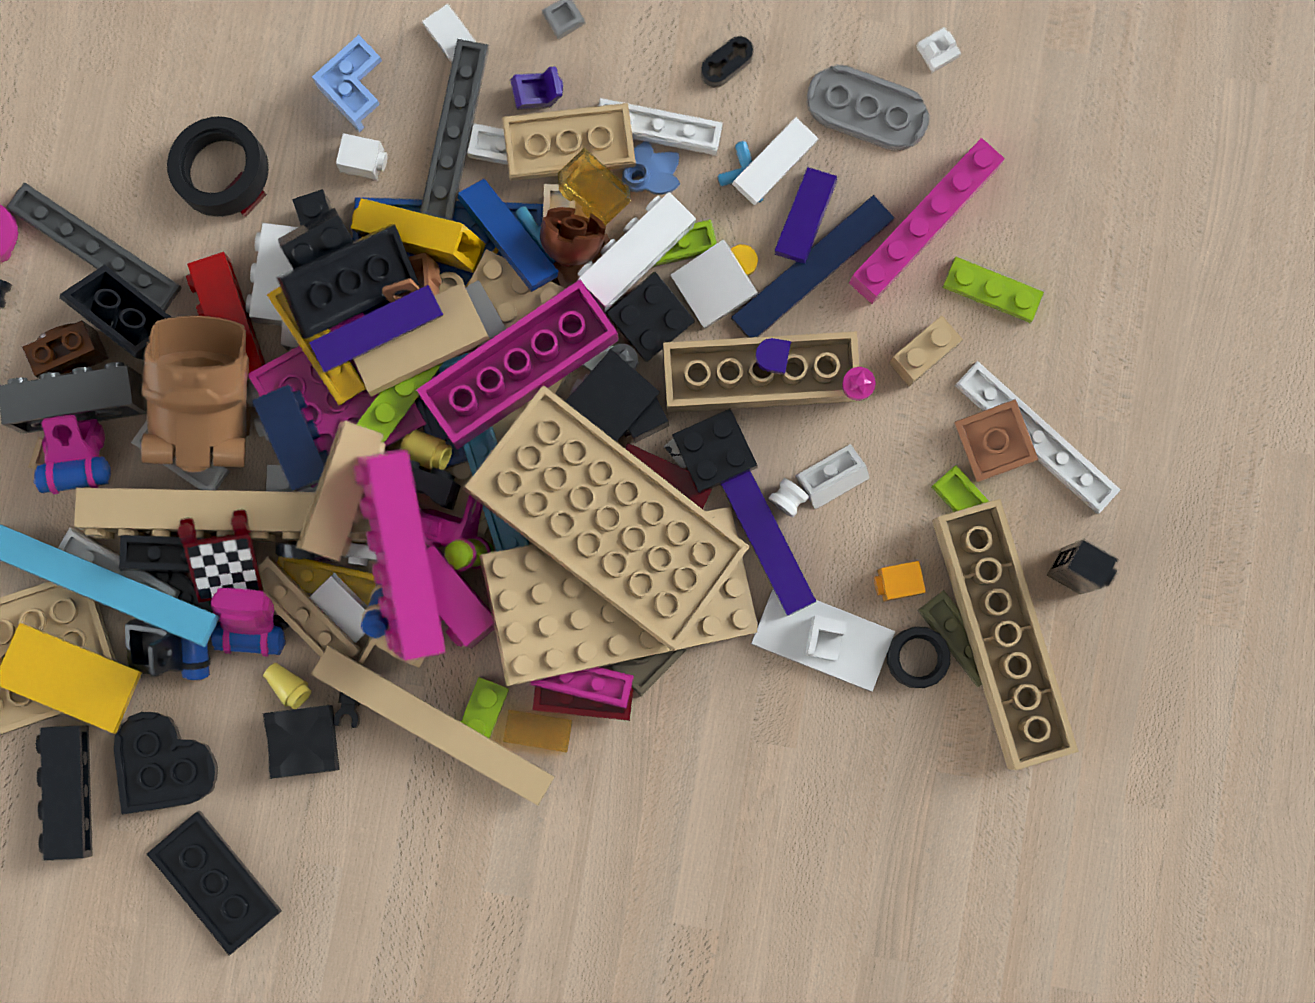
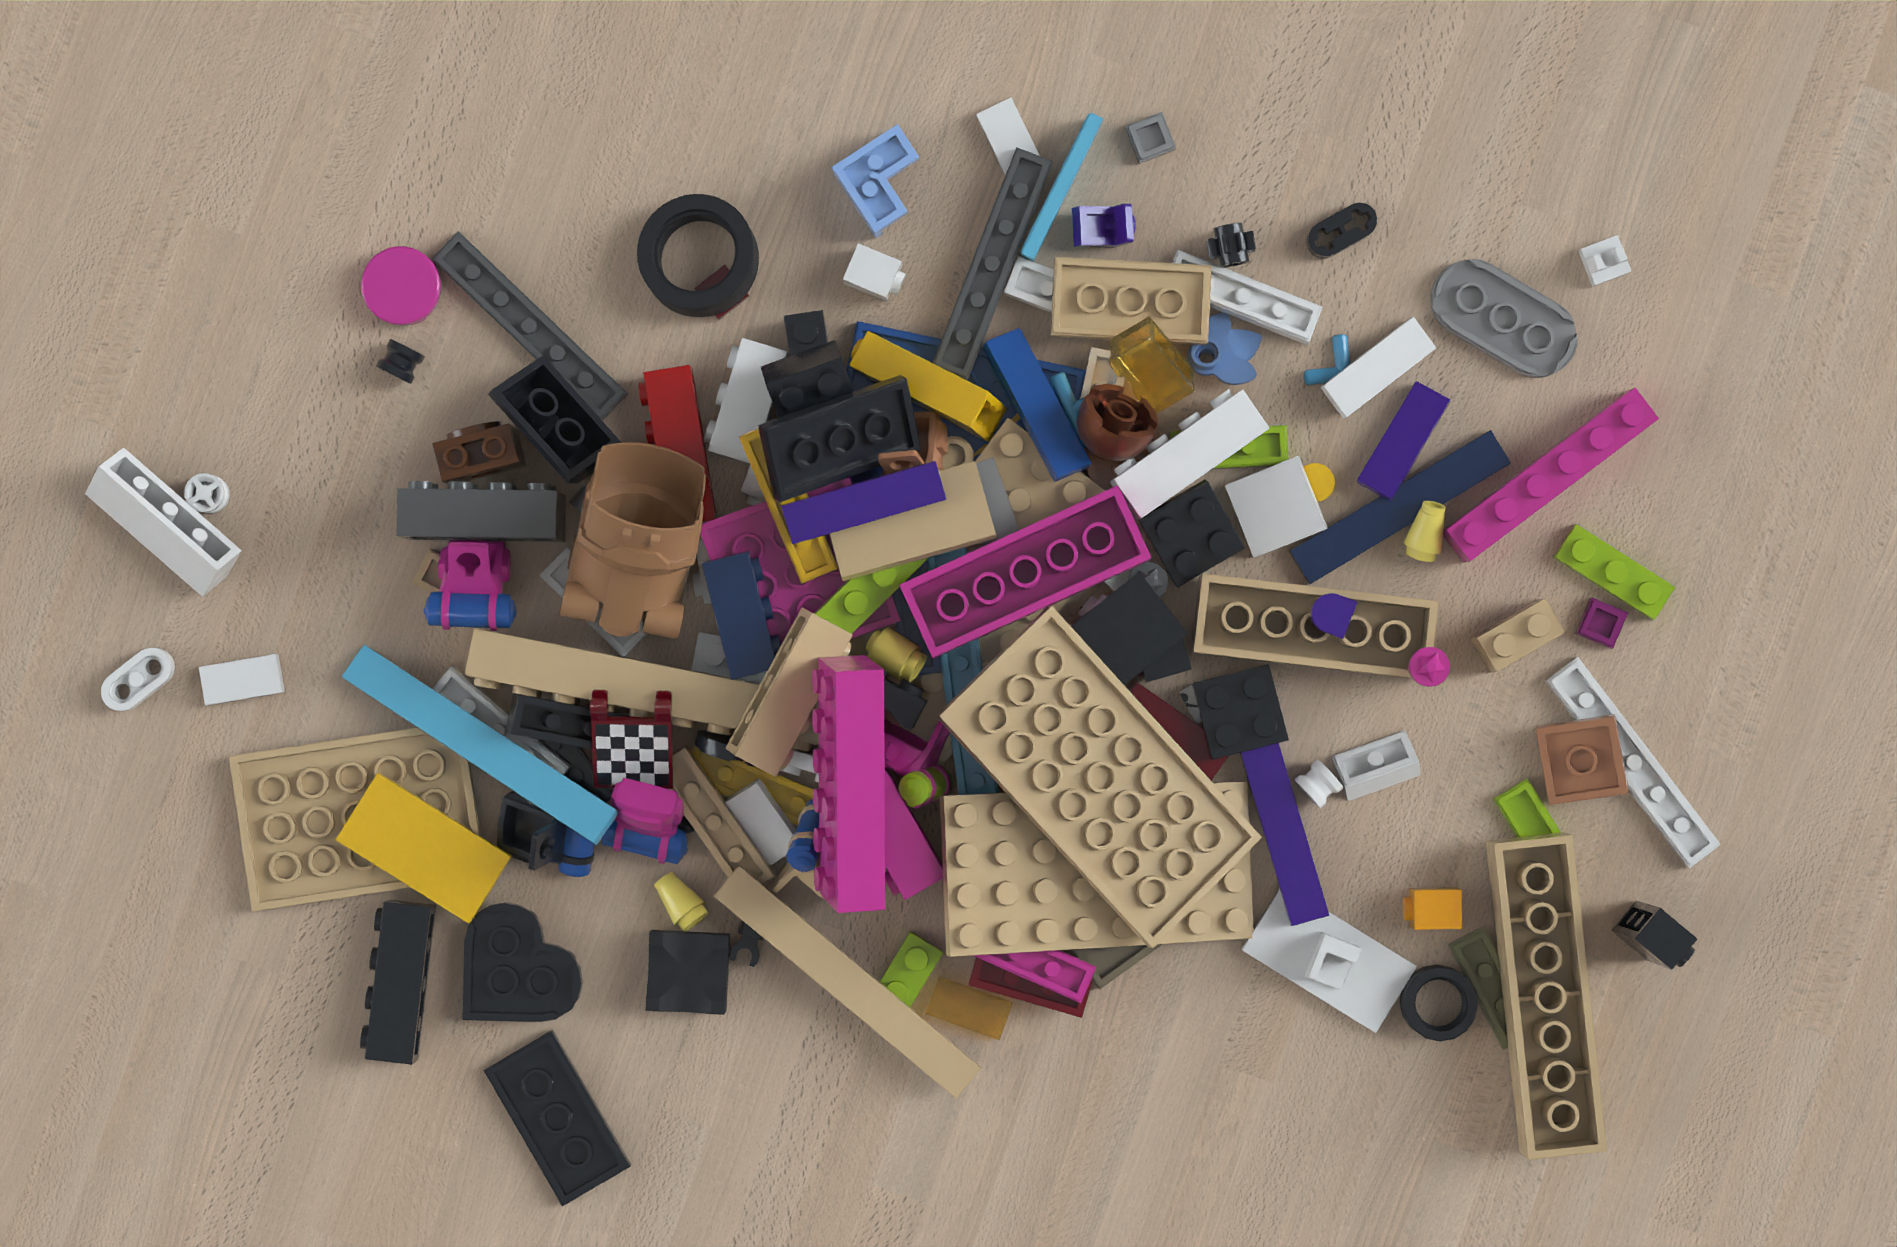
camera: 15 degrees right, 5 degrees up
(499, 64) = (1061, 187): none -> medium azure tile
(641, 86) = (1231, 245): none -> black gear
(837, 283) = (1426, 533): none -> light yellow cone
(990, 331) = (1601, 623): none -> magenta tile

